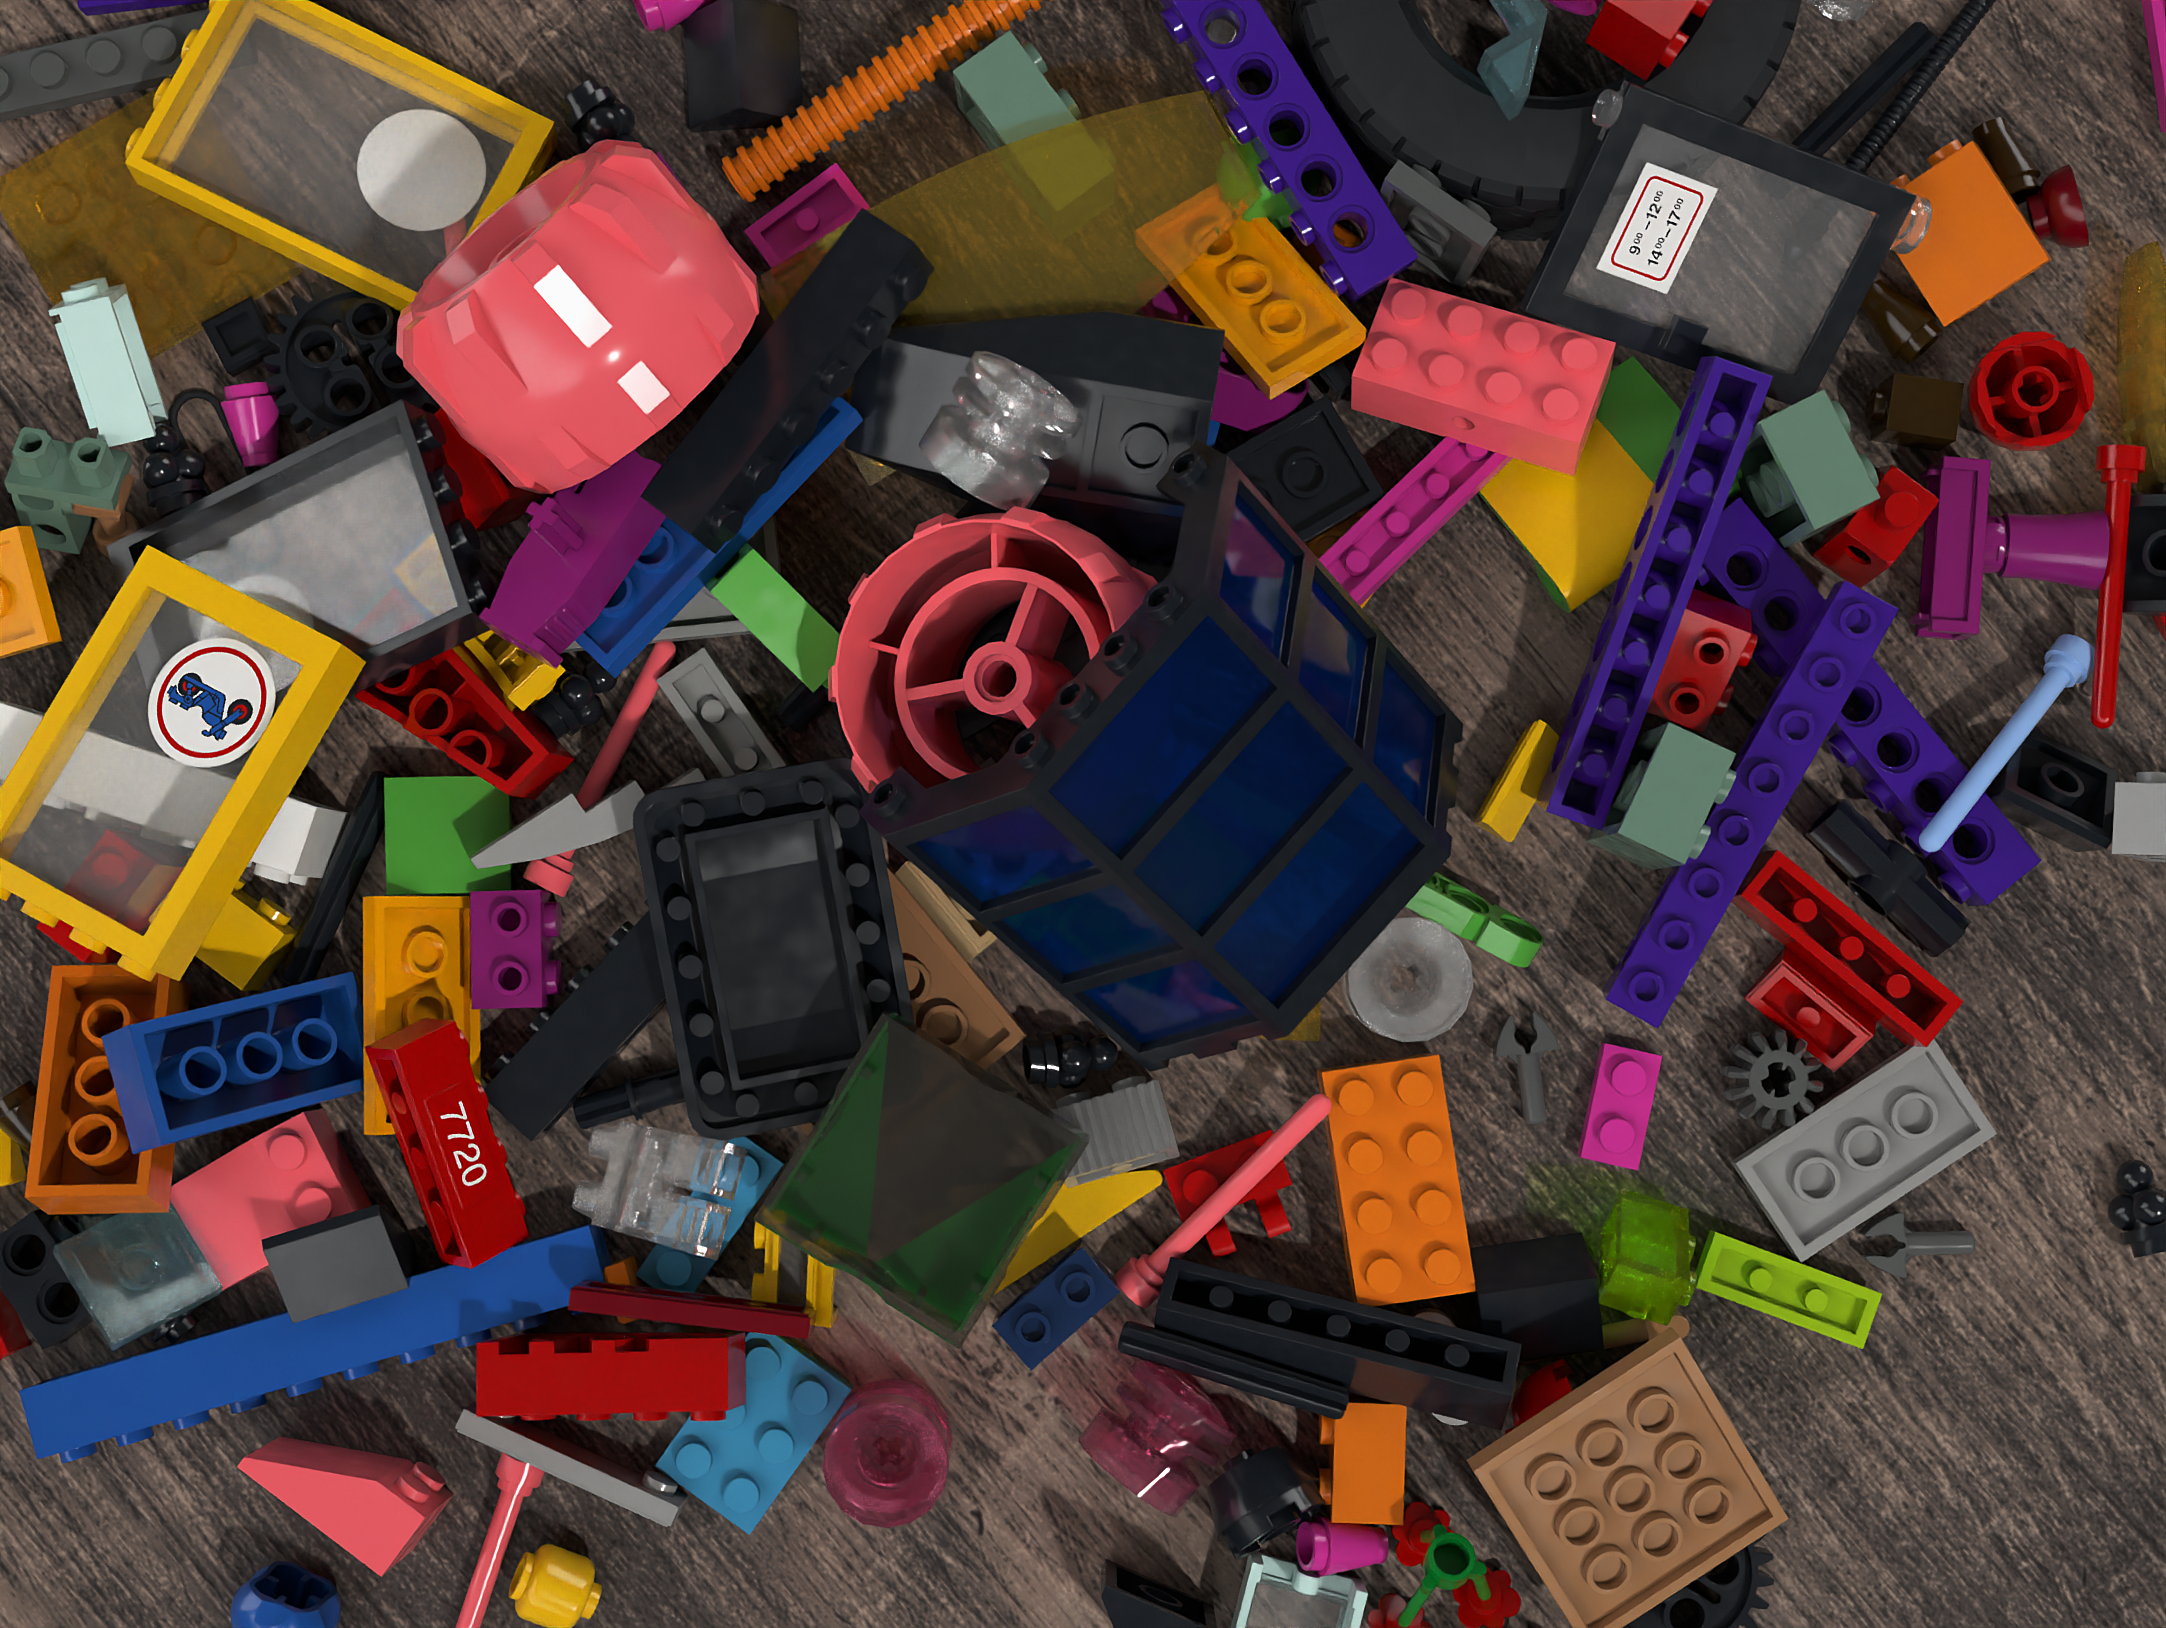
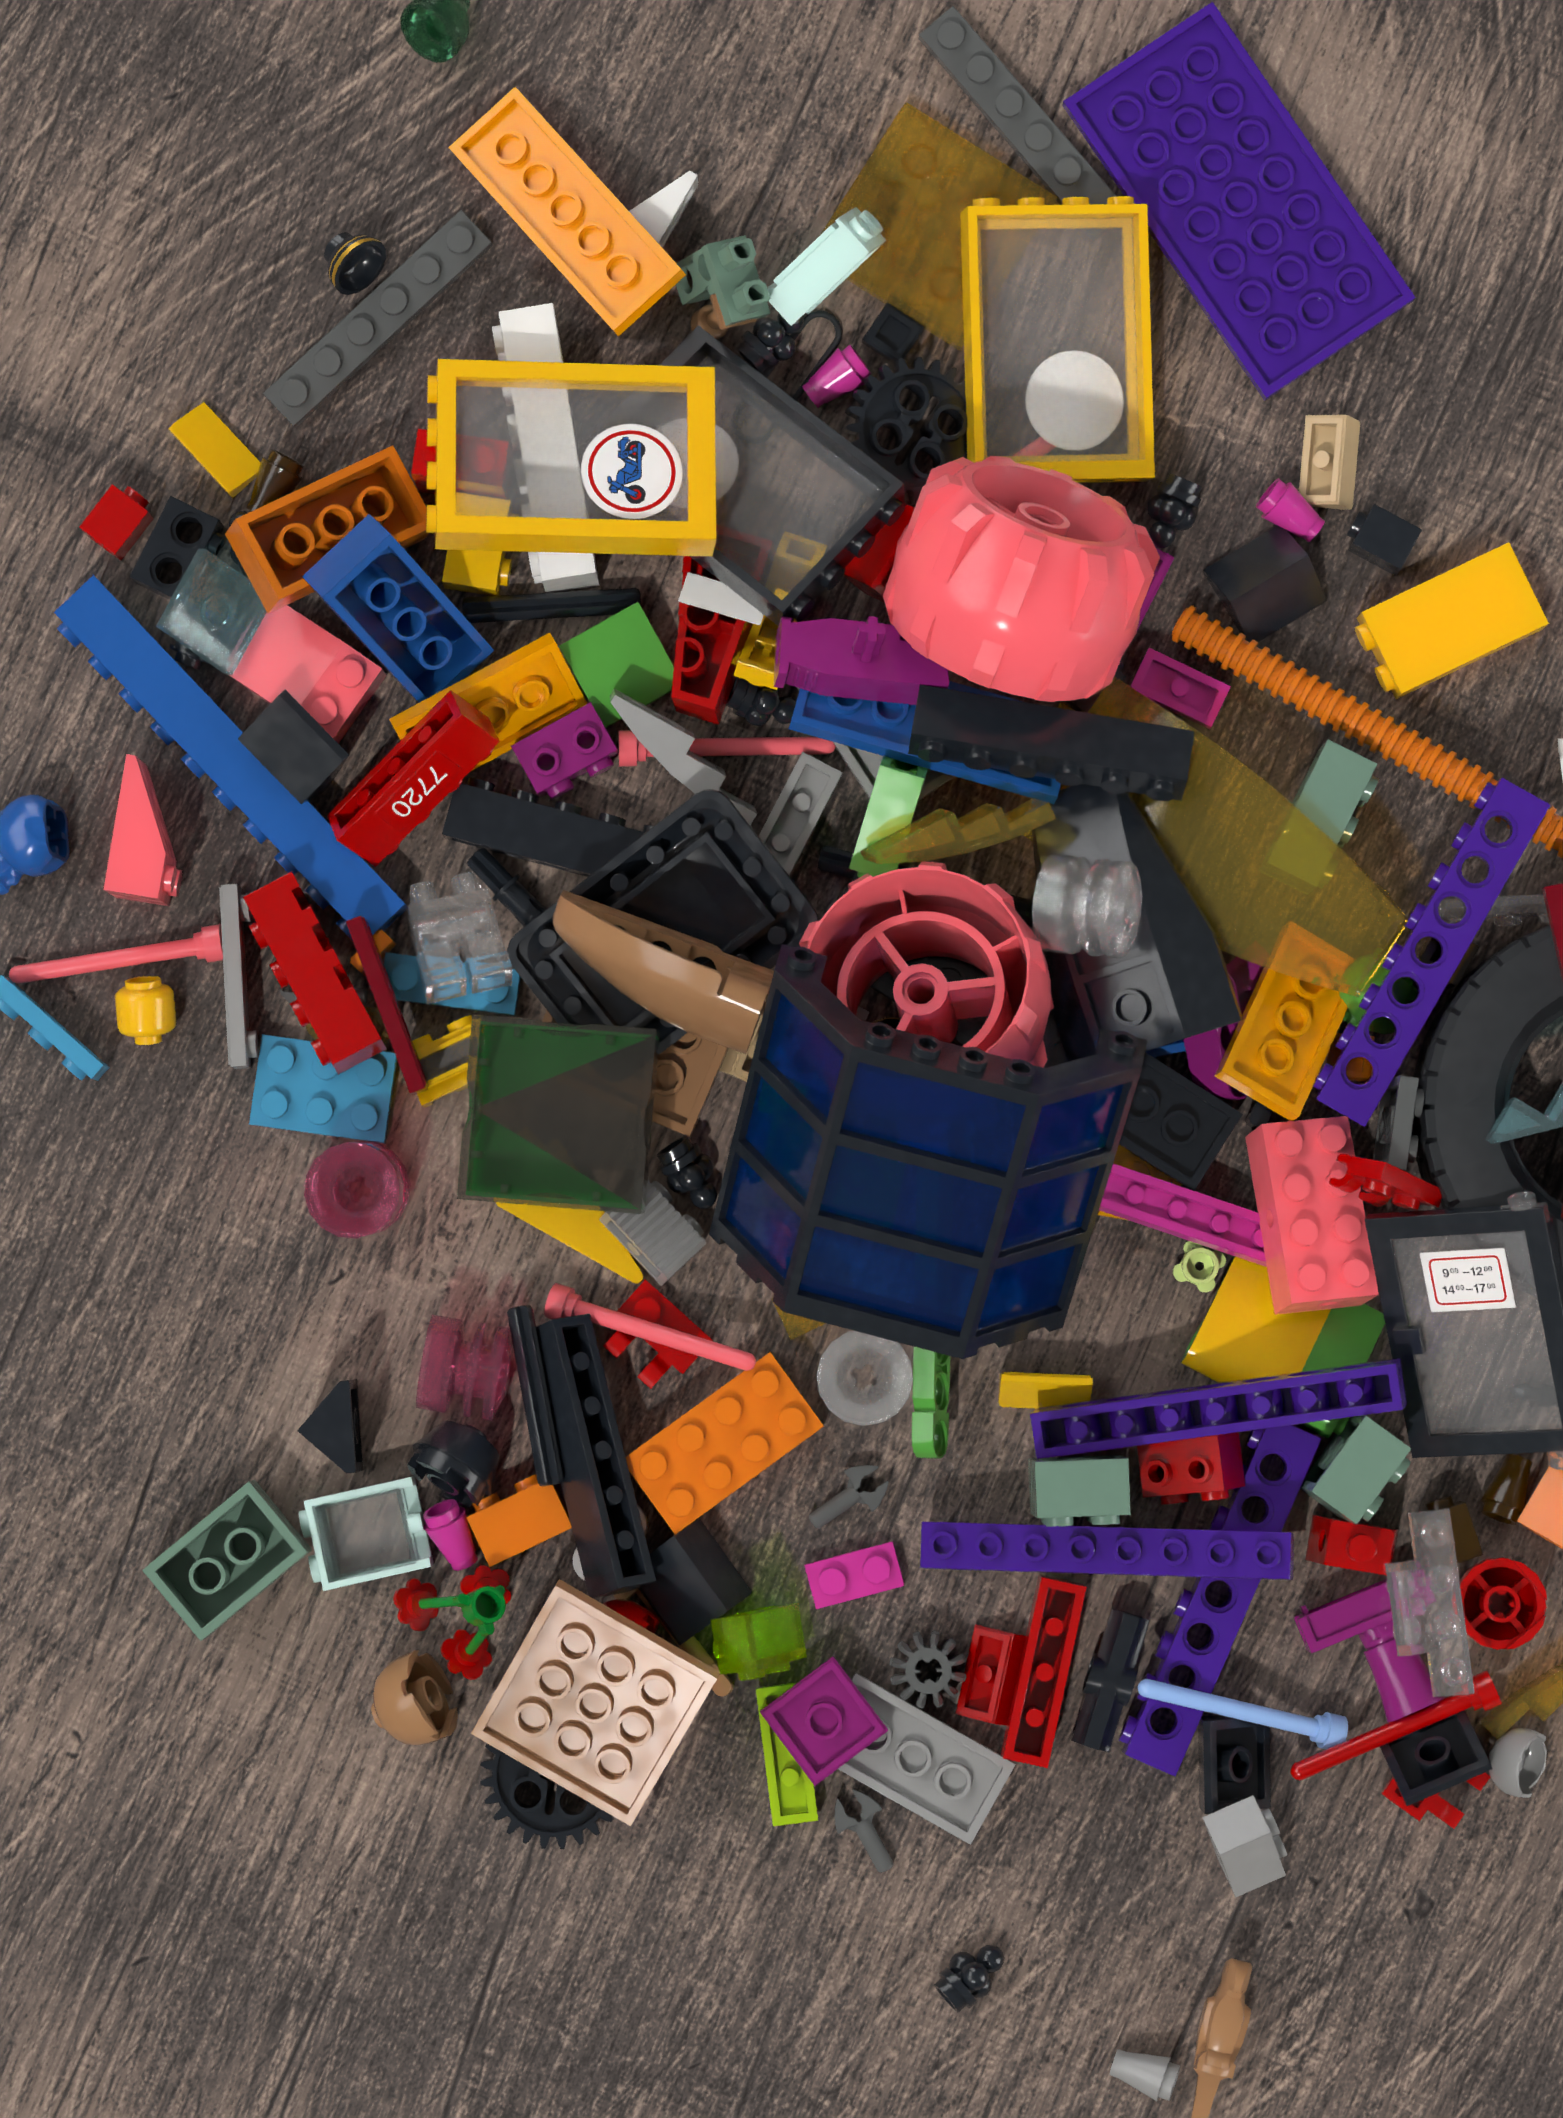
camera: 55 degrees right, 0 degrees up
(425, 682) = (718, 598): none -> white sticker
(832, 557) = (945, 836): none -> clear yellow slope
(871, 946) = (700, 1000): none -> medium nougat panel
(1056, 1305) = (515, 1253): dark blue brick -> none
(1473, 520) = (1204, 1278): none -> yellowish green plate
(1494, 264) = (1385, 1183): none -> red plate
(1773, 1228) = (823, 1720): none -> magenta tile
(1998, 467) = (1430, 1605): none -> clear bracket

